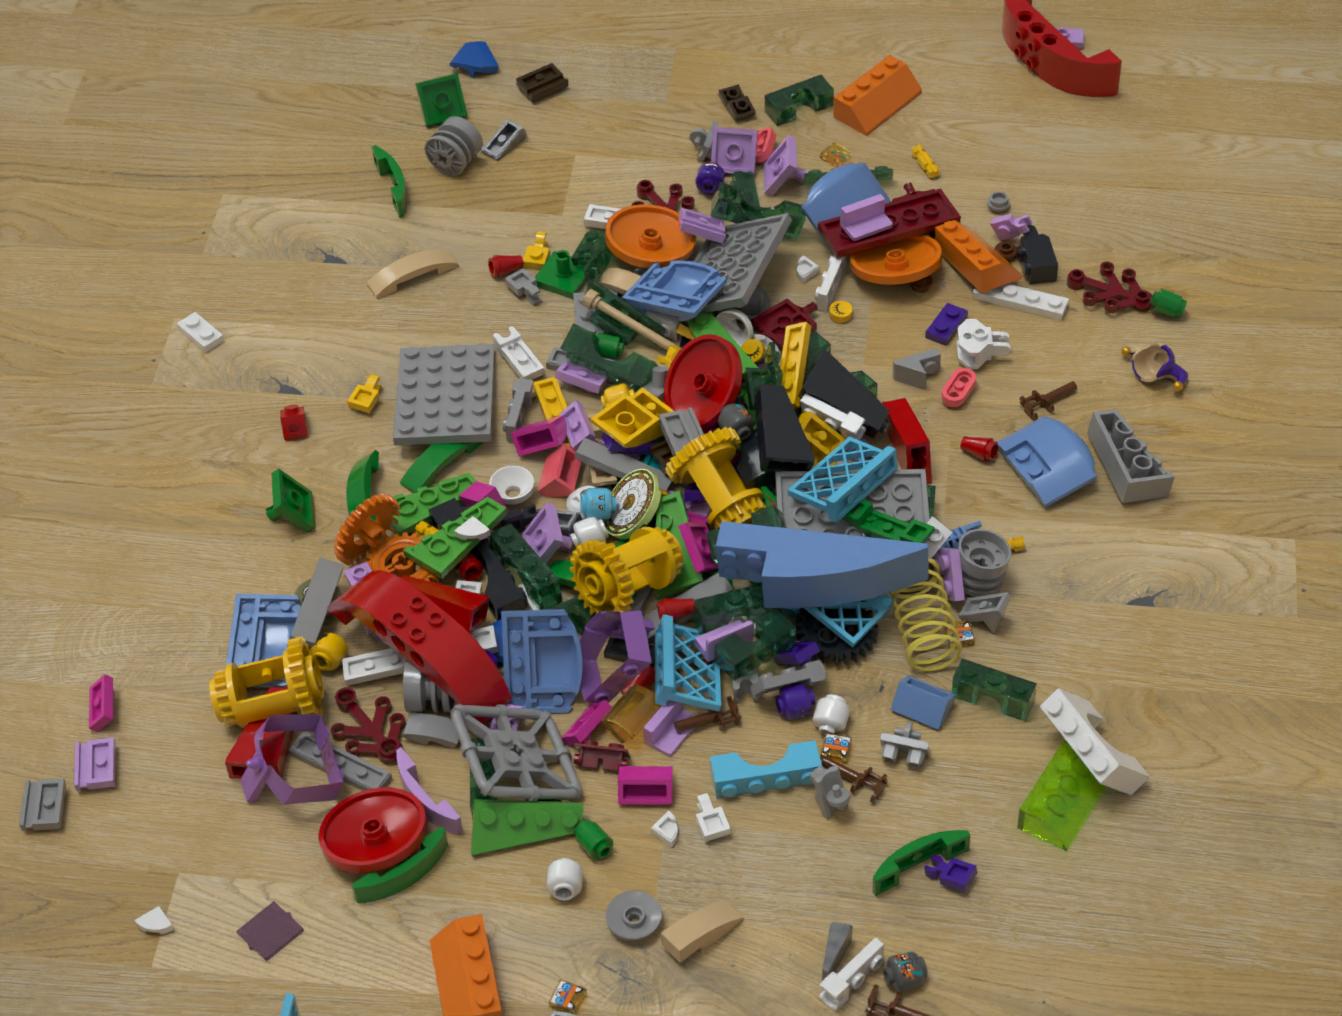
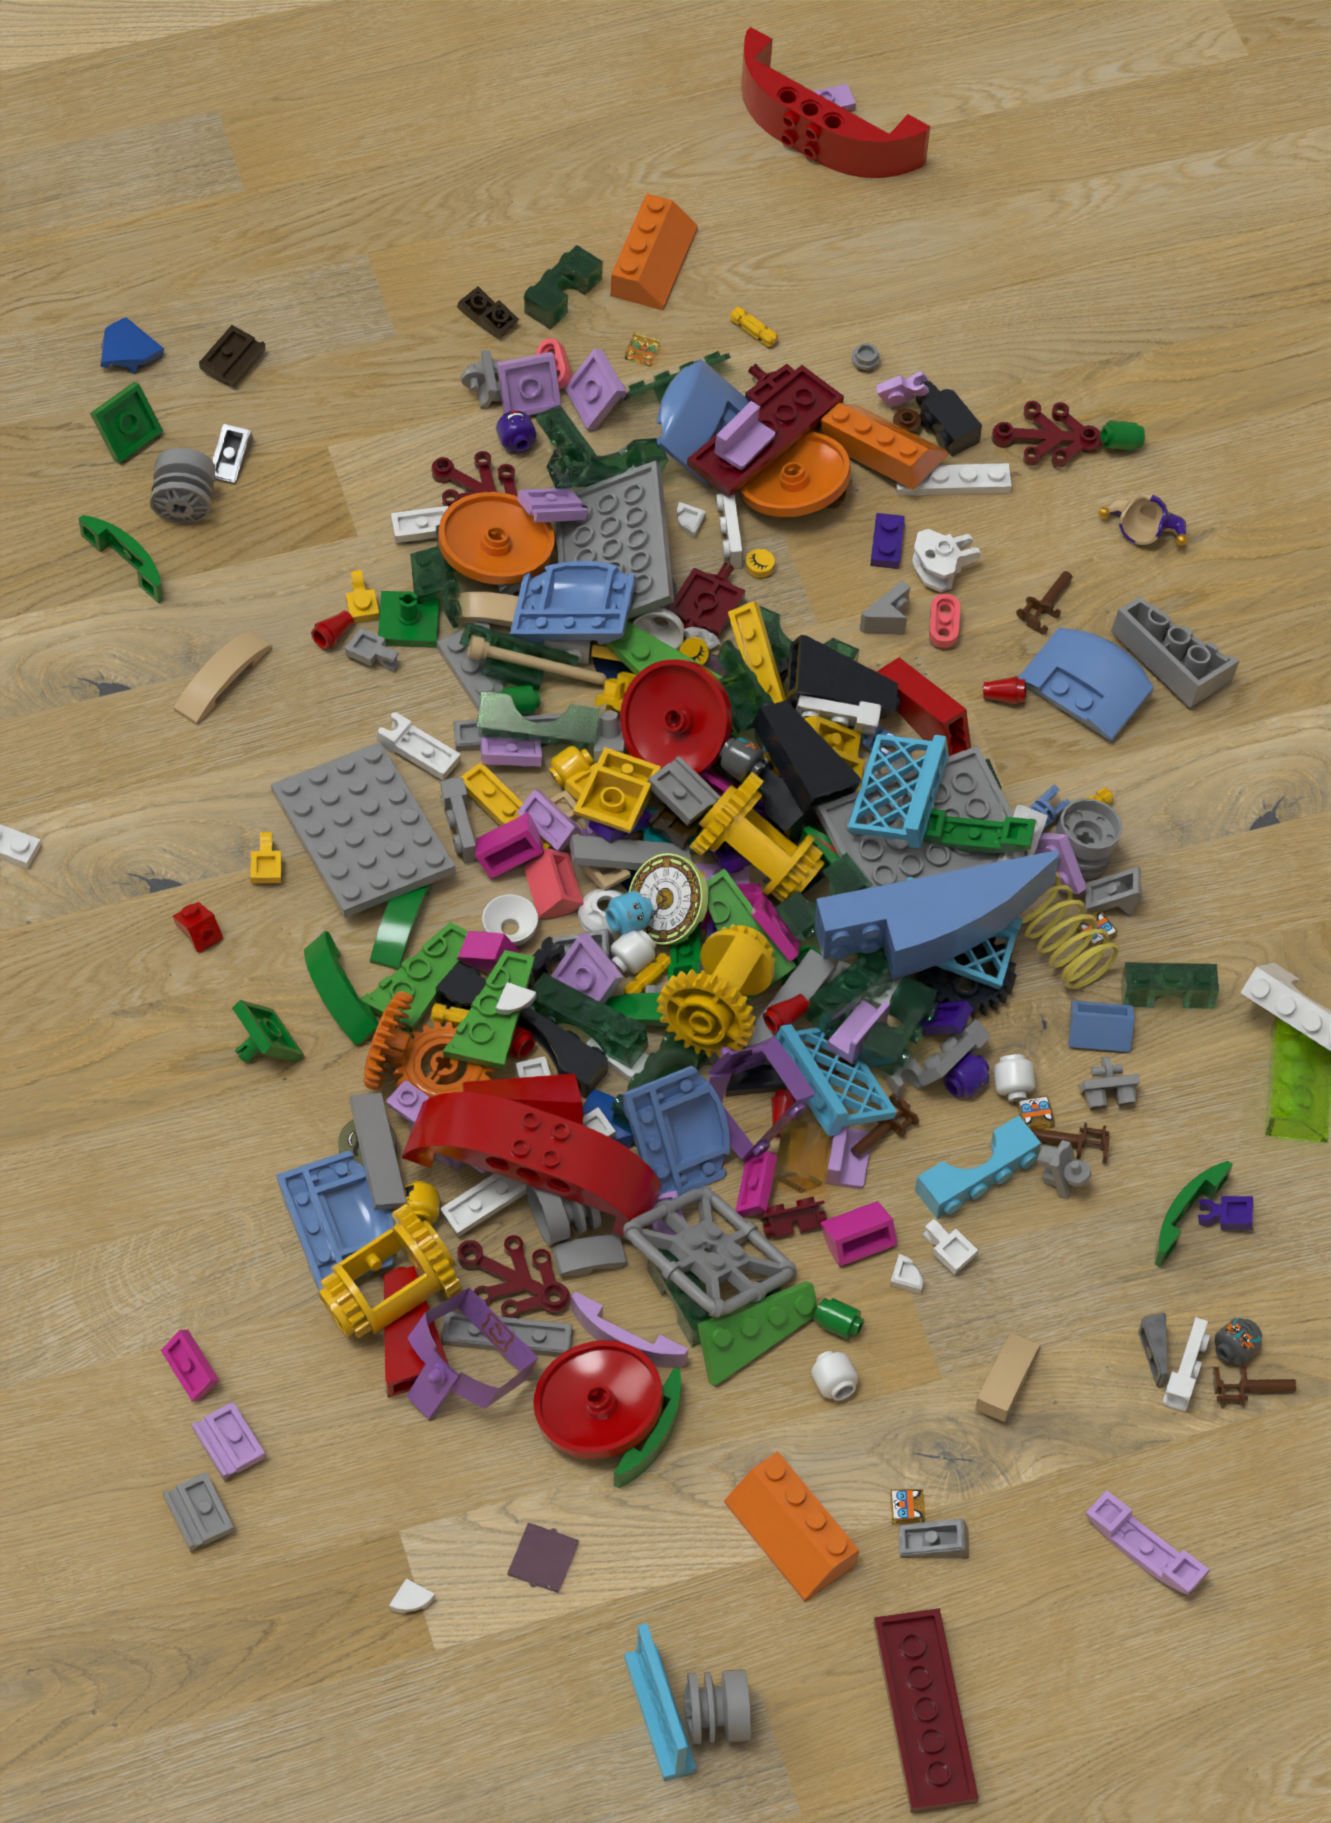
camera: 30 degrees left, 10 degrees up
(633, 906) = (934, 1376): light grey dish -> none

